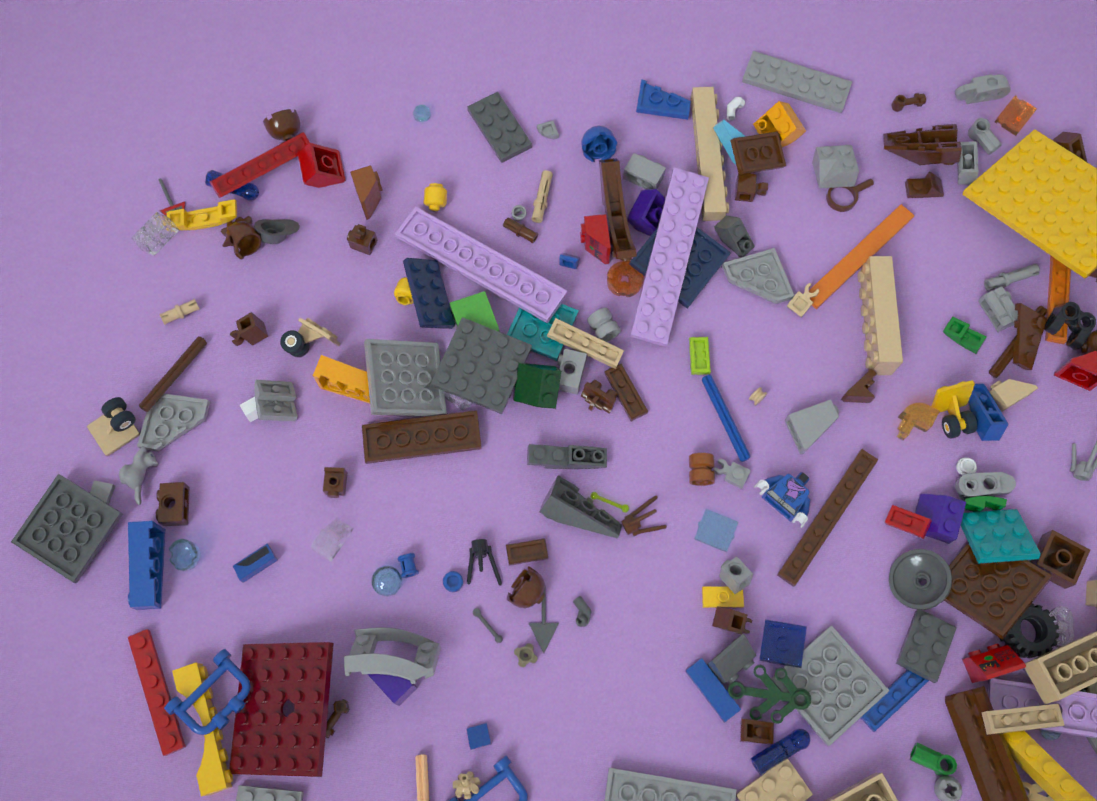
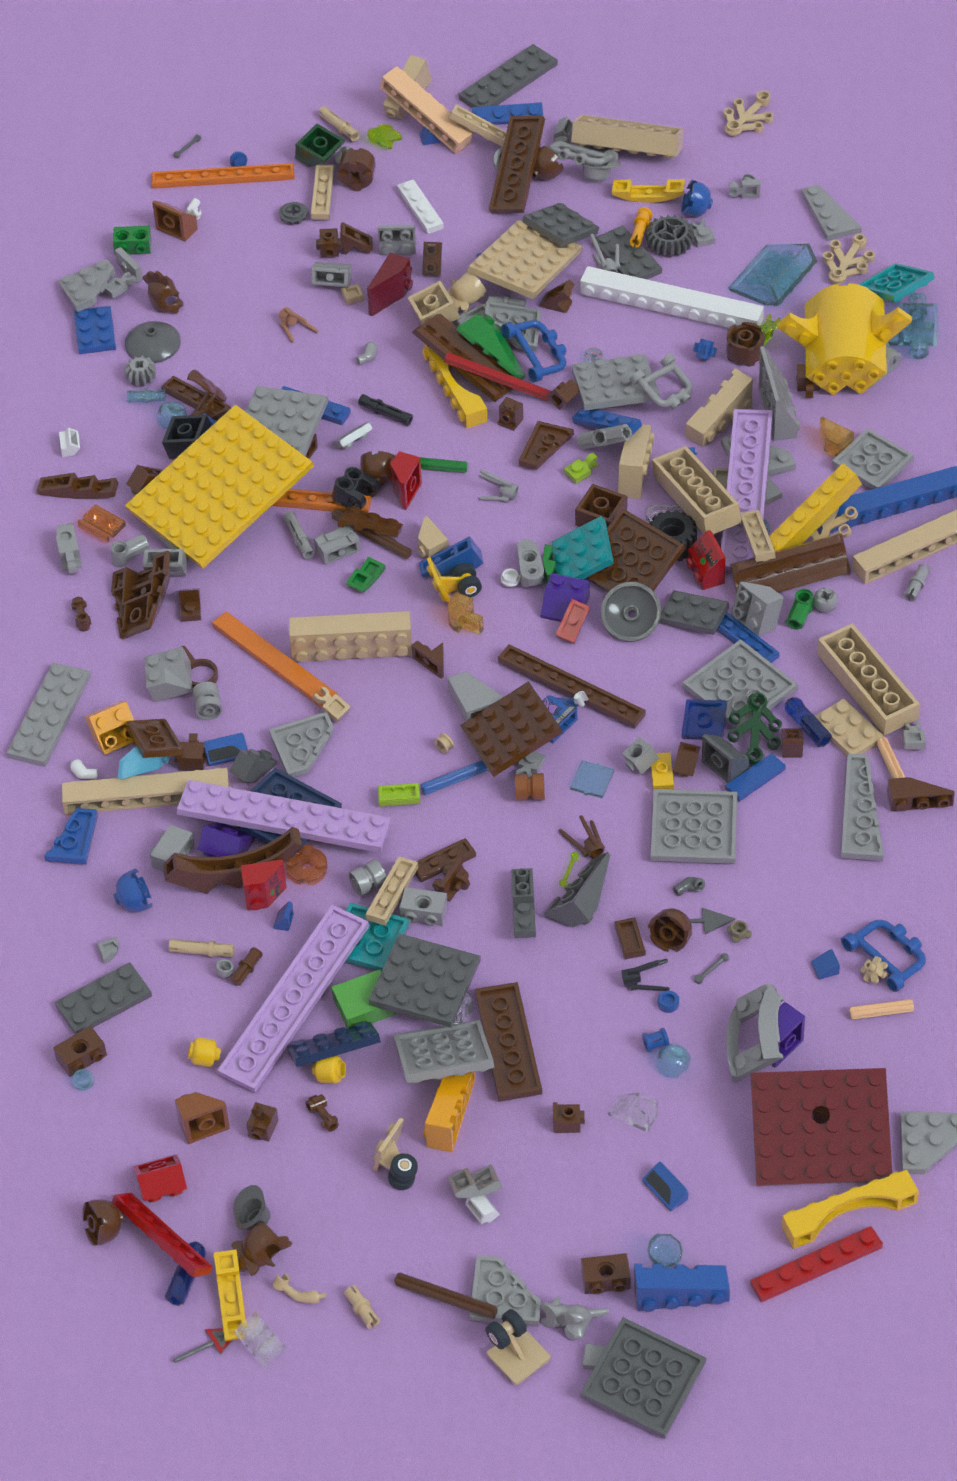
camera: 90 degrees left, 20 degrees down
(199, 267) = (303, 1297): none -> tan piece
(220, 720) = (831, 1222): blue bar -> none
(249, 329) = (387, 1221): reddish brown brick -> none
(376, 281) = (318, 1104): none -> reddish brown bar
(442, 101) = (69, 1051): none -> reddish brown brick
(537, 385) = (446, 924): dark green slope -> none
(652, 622) = (694, 826): none -> light grey plate
(754, 215) = (224, 748): none -> blue slope
(765, 453) = (511, 729): none -> reddish brown plate
(807, 198) = (207, 700): none -> light grey wheel
(927, 711) = (757, 607): none -> light grey slope
(1058, 96) = (77, 488): none -> reddish brown slope

